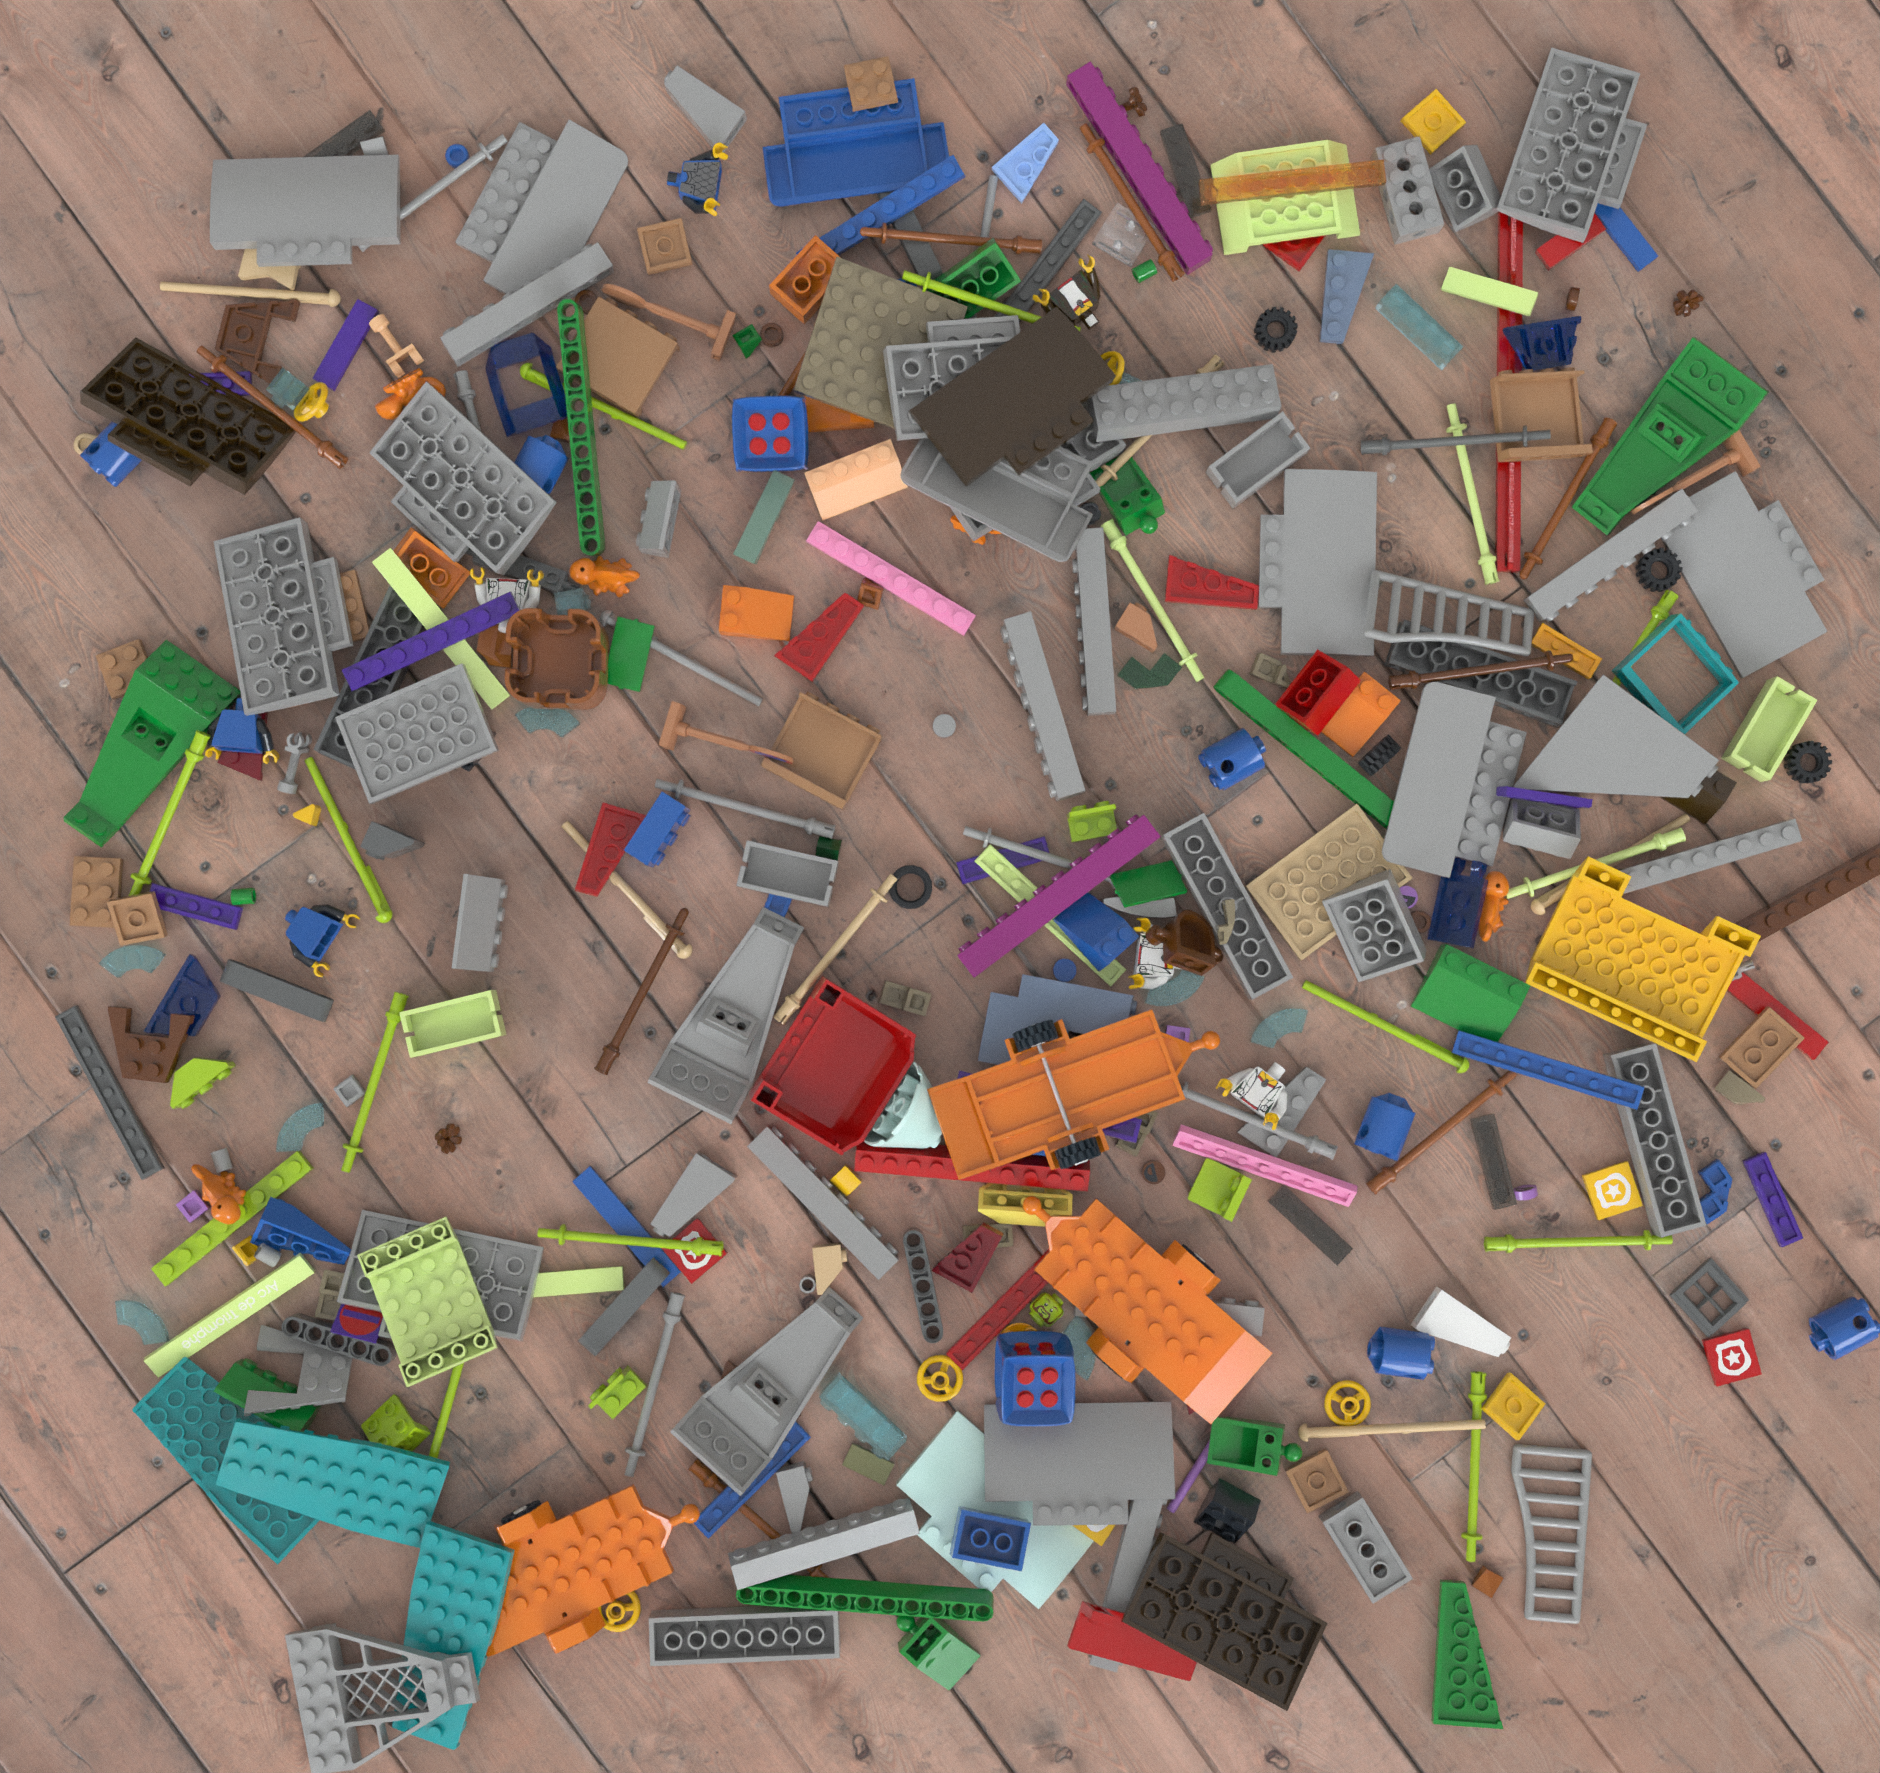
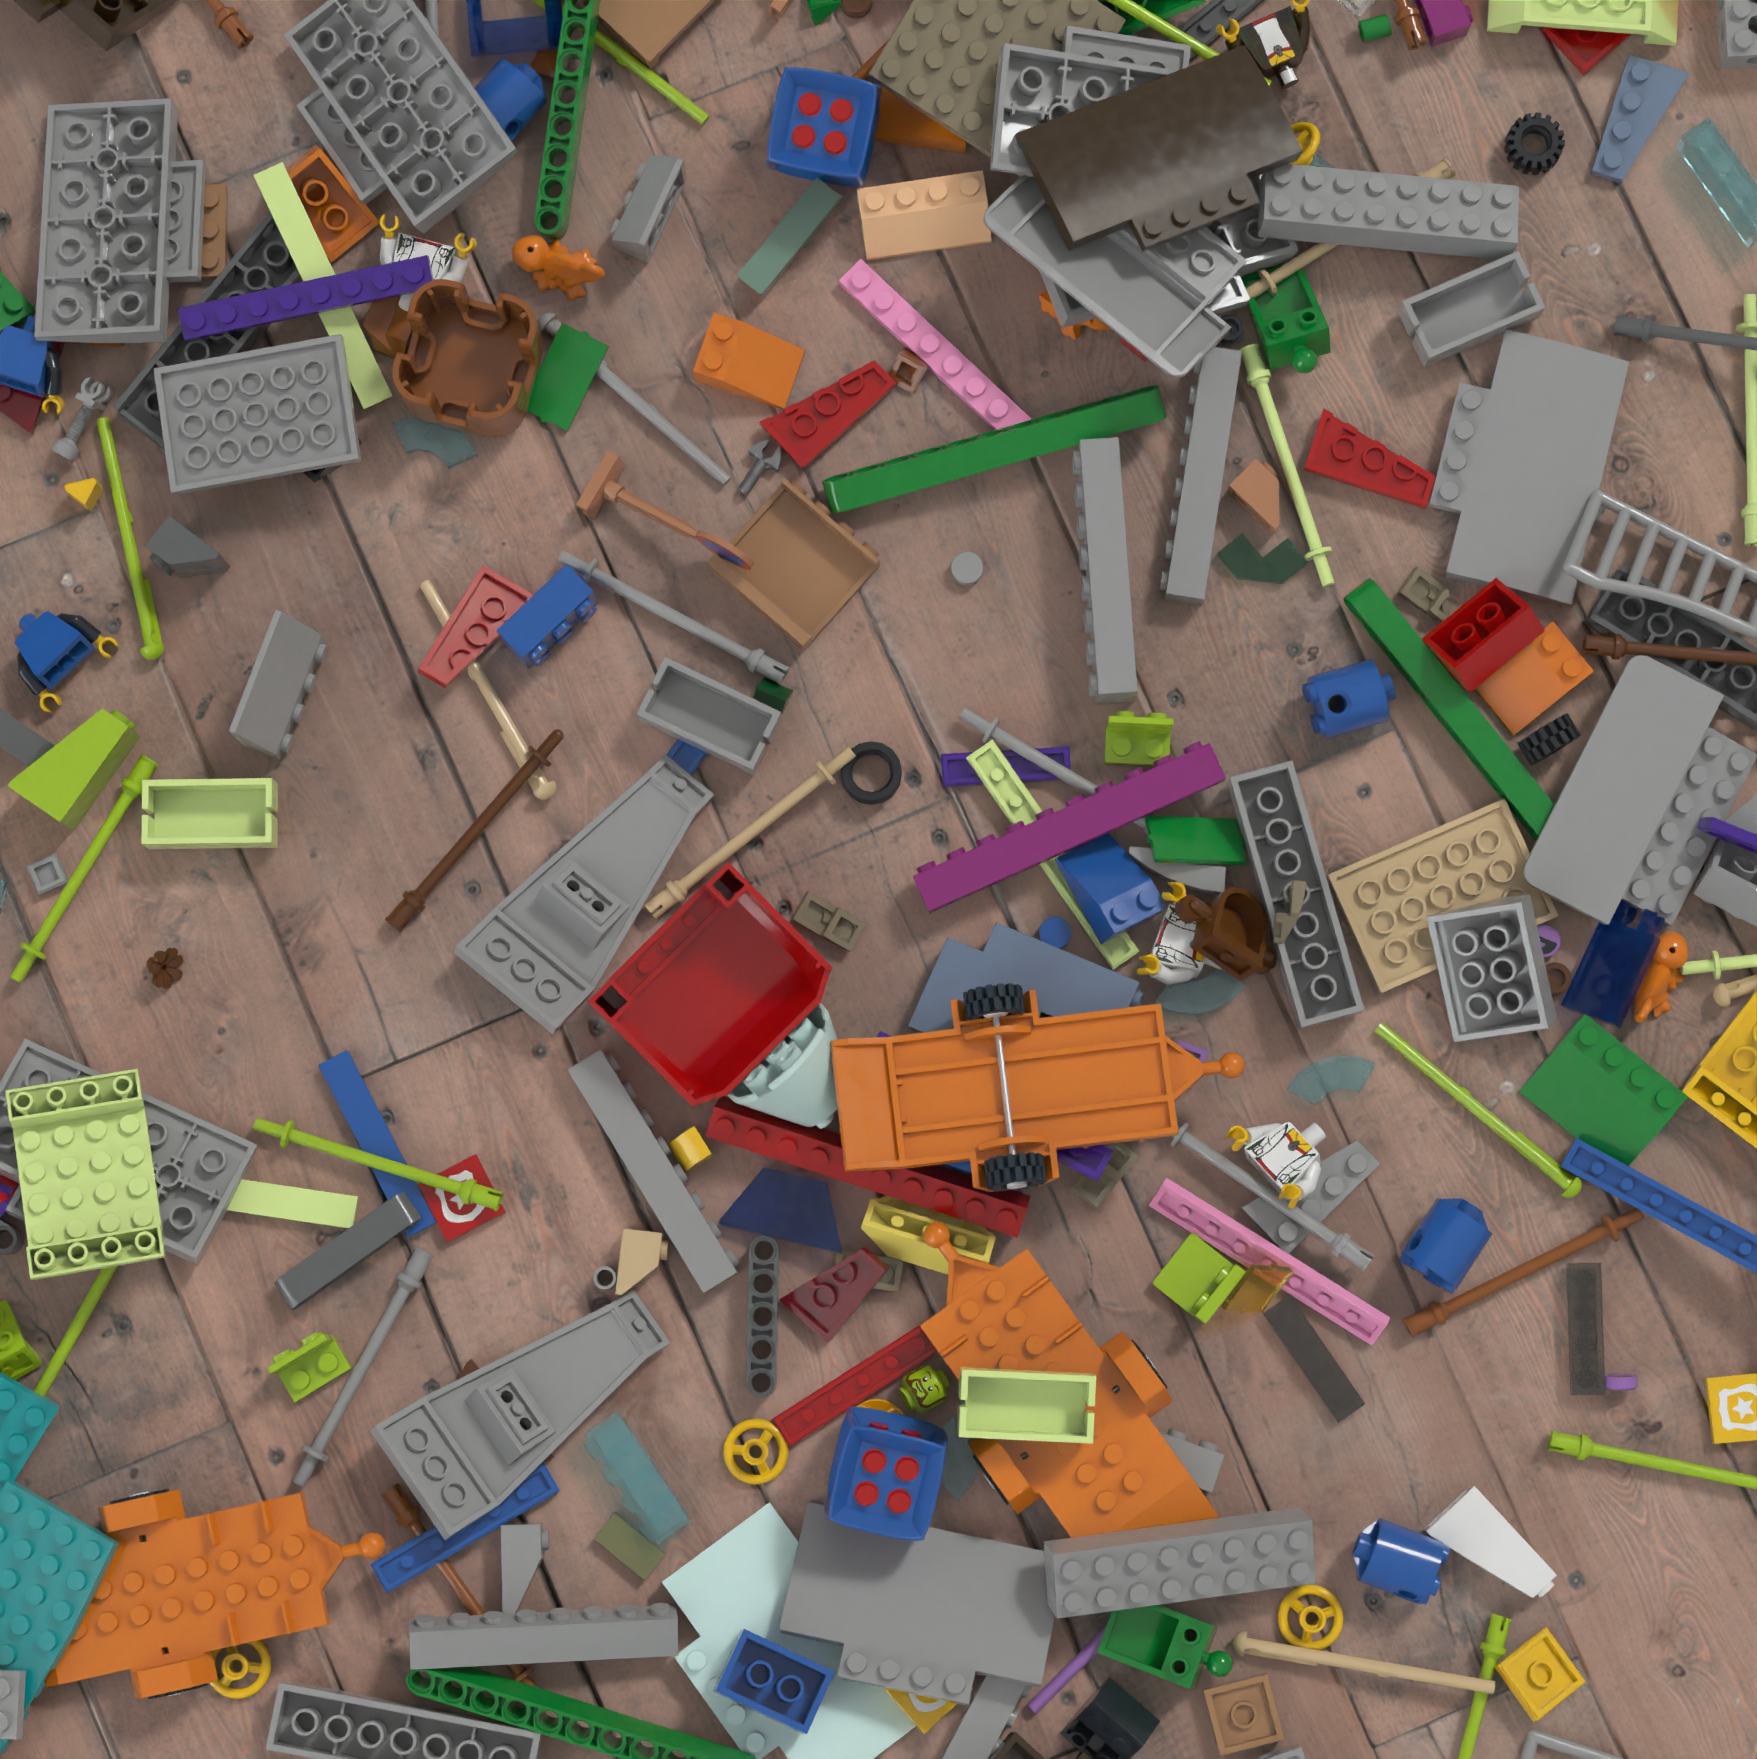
camera: 15 degrees right, 5 degrees down
(352, 1014) = (78, 767): none -> lime slope
(553, 580) = (487, 258): dark grey plate -> none
(571, 600) = (505, 283): clear light blue brick -> none
(693, 1191) = (479, 1116): light grey slope -> none
(781, 686) = (759, 466): none -> flat silver bar
(923, 1207) = (786, 1209): none -> clear blue wing
(944, 637) = (994, 449): none -> green beam
(1122, 1311) = (1026, 1405): none -> yellowish green piece
(1153, 1172) = (1114, 1236): reddish brown tile -> none
(1250, 1391) = (1179, 1562): none -> light grey brick
(1261, 1188) = (1257, 1288): none -> clear yellow piece

